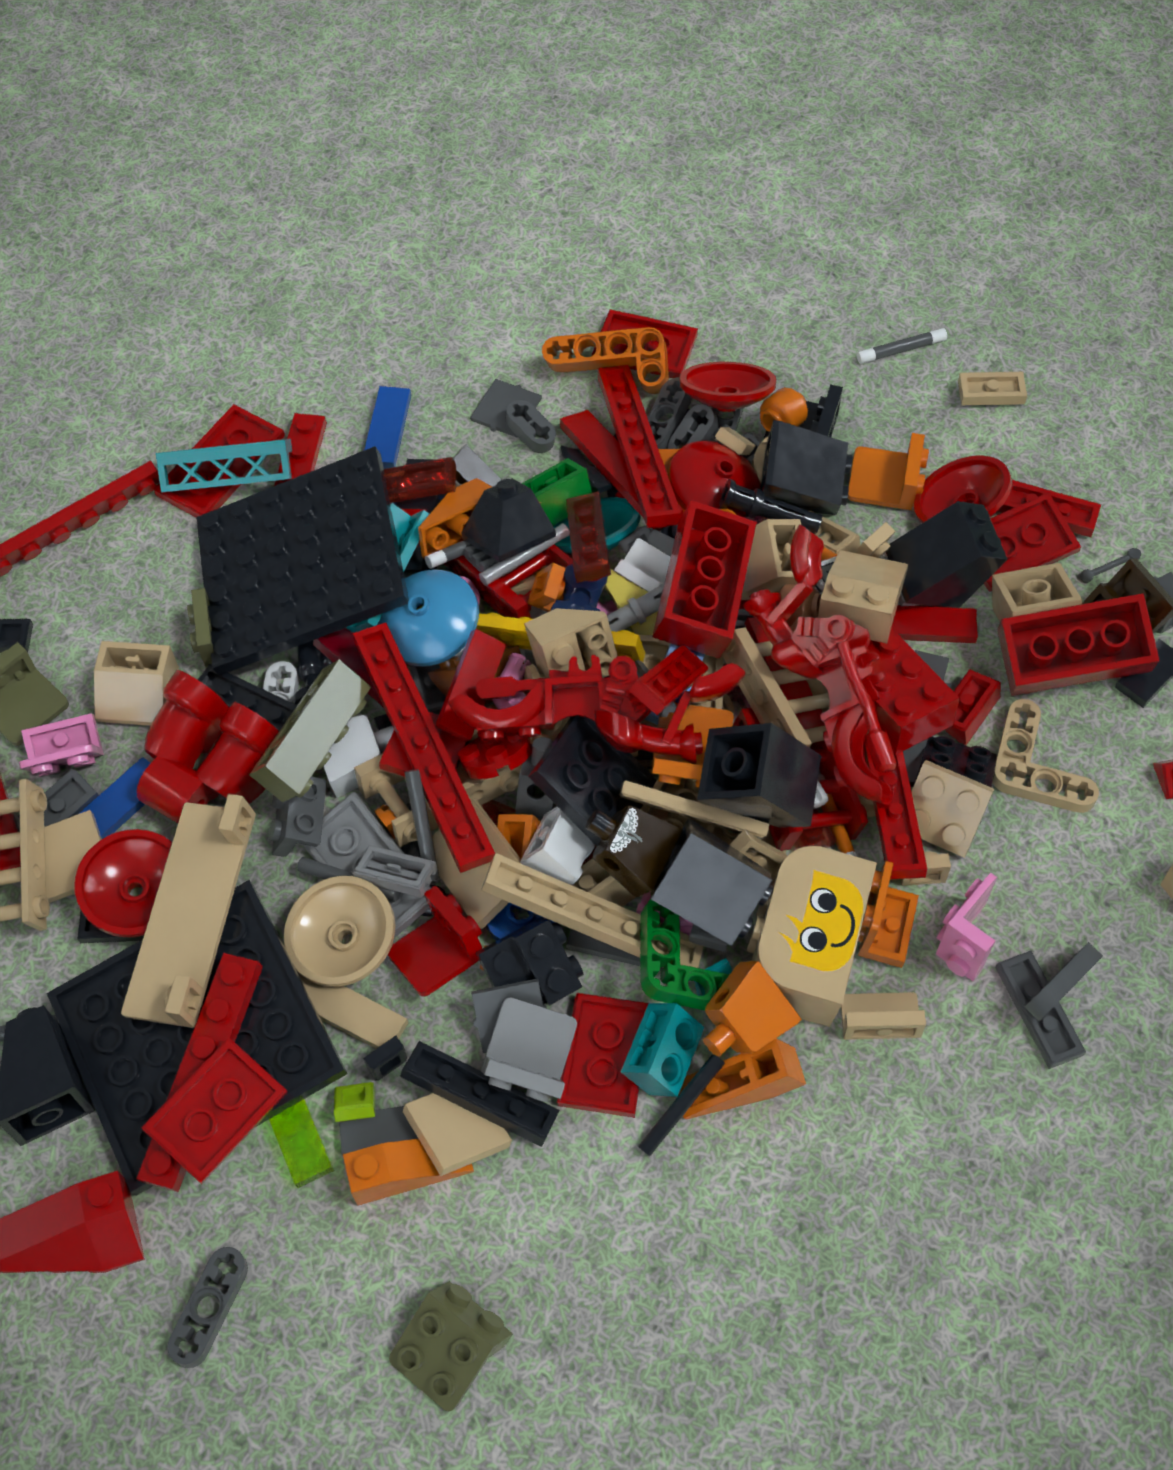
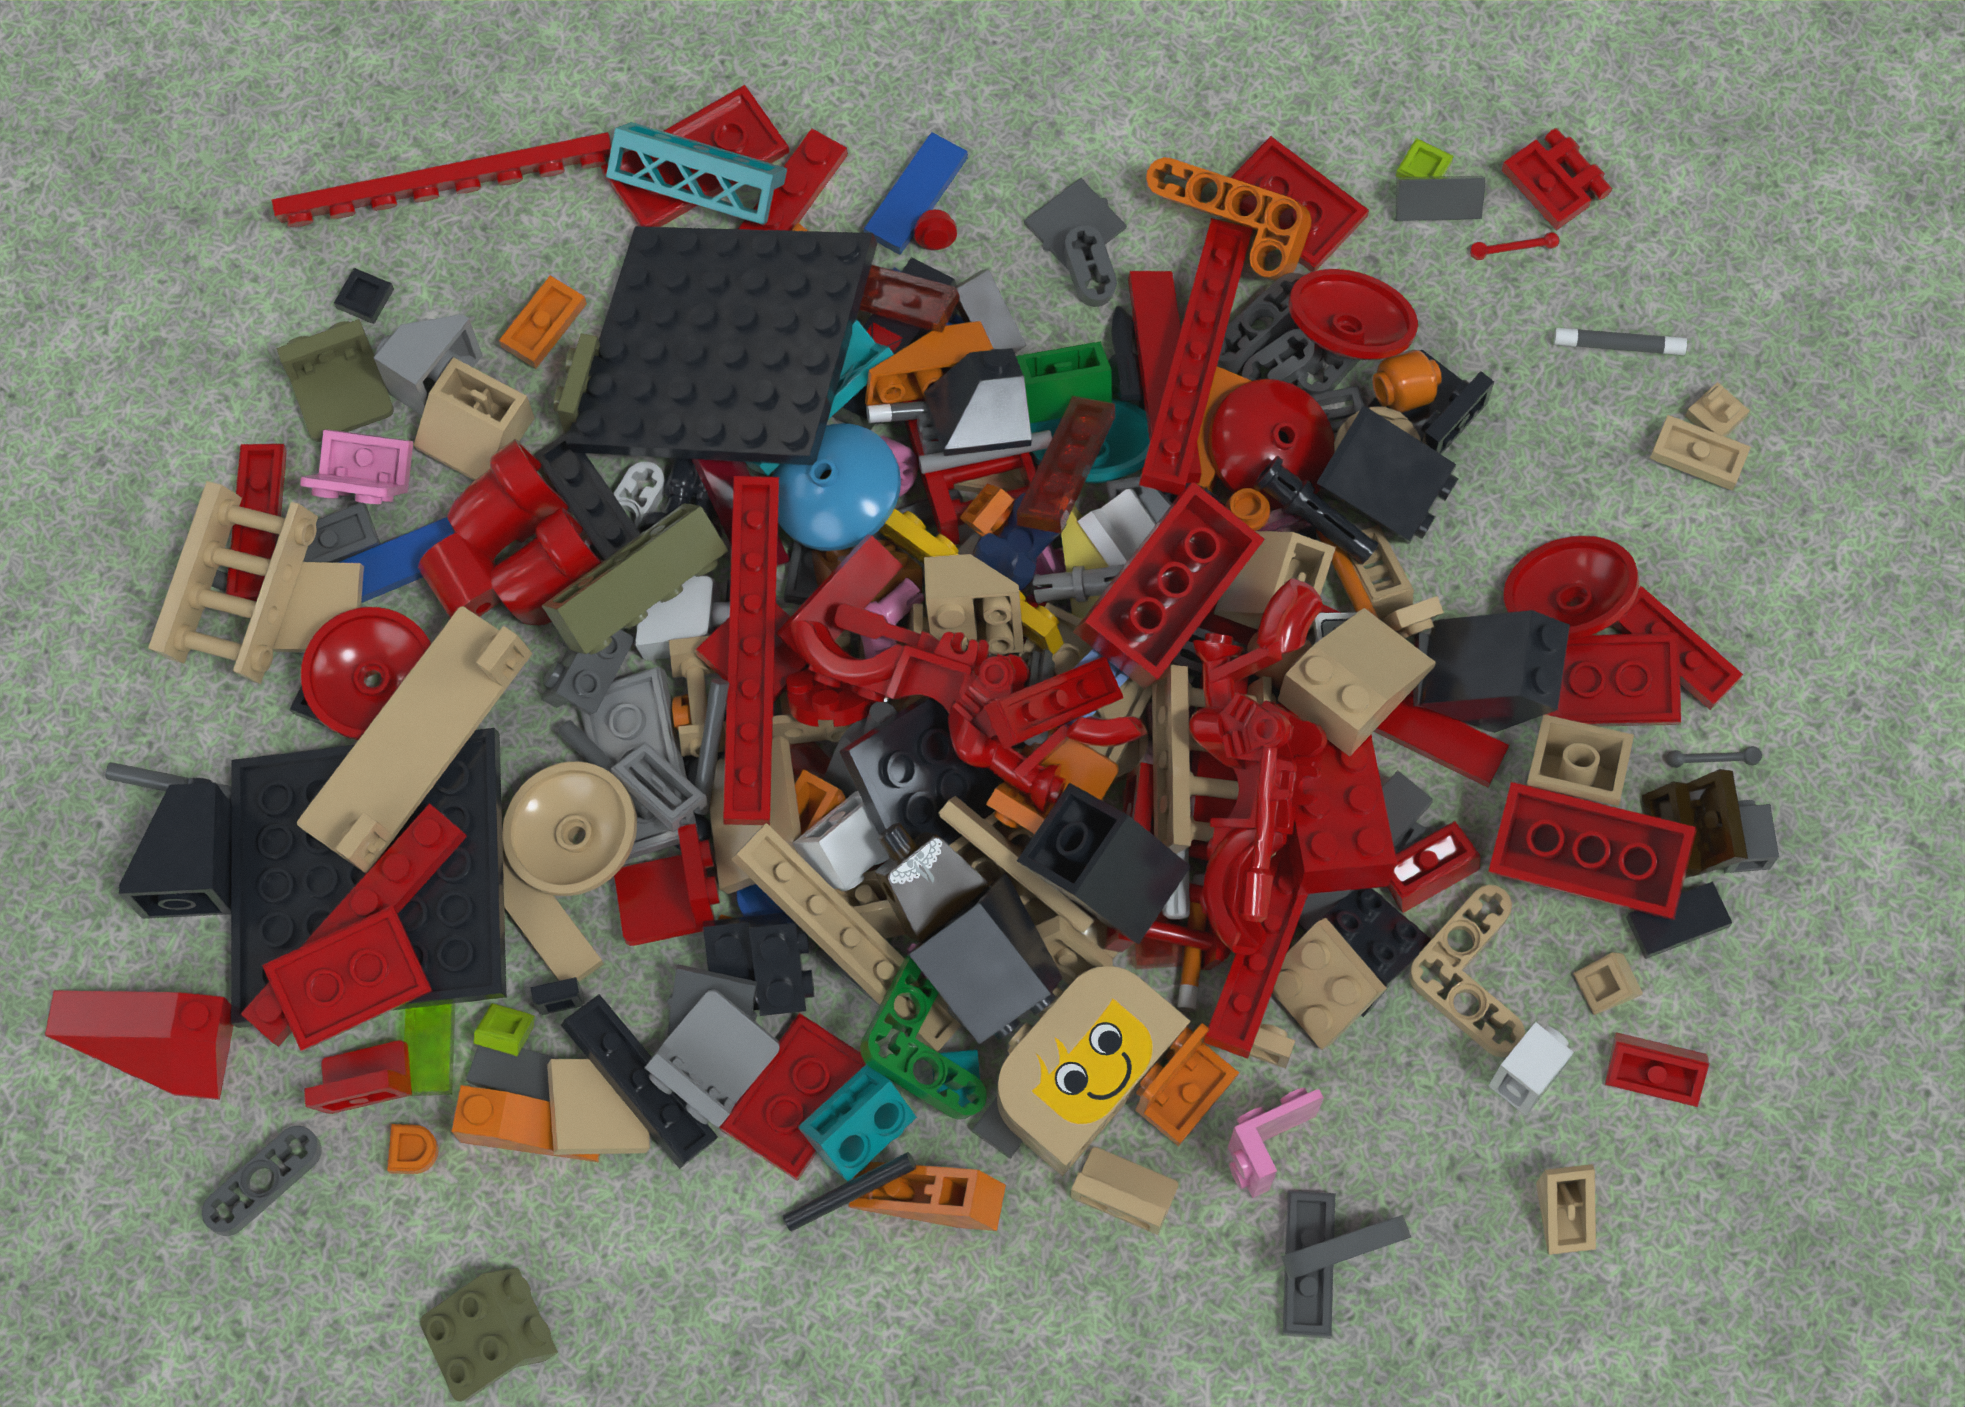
camera: 25 degrees right, 10 degrees up
(74, 651) = (420, 353): none -> light grey slope
(156, 601) = (542, 322): none -> orange plate
(257, 1188) = (362, 1078): none -> red panel
(321, 1227) = (411, 1149): none -> orange tile
(413, 442) = (935, 230): none -> red plate
(718, 292) = (1424, 161): none -> lime tile
(734, 441) = (1325, 397): tan tile -> none
(740, 304) = (1439, 198): none -> dark grey slope
(748, 1011) = (961, 1126): orange torso -> none
(781, 327) = (1480, 250): none -> red hinge
(807, 268) = (1548, 185): none -> red plate
(888, 476) = (1497, 519): orange bracket -> none
(988, 359) = (1717, 411): none -> tan tile
(1120, 802) = (1531, 1067): none -> white brick
(1128, 733) = (1607, 983): none -> tan slope

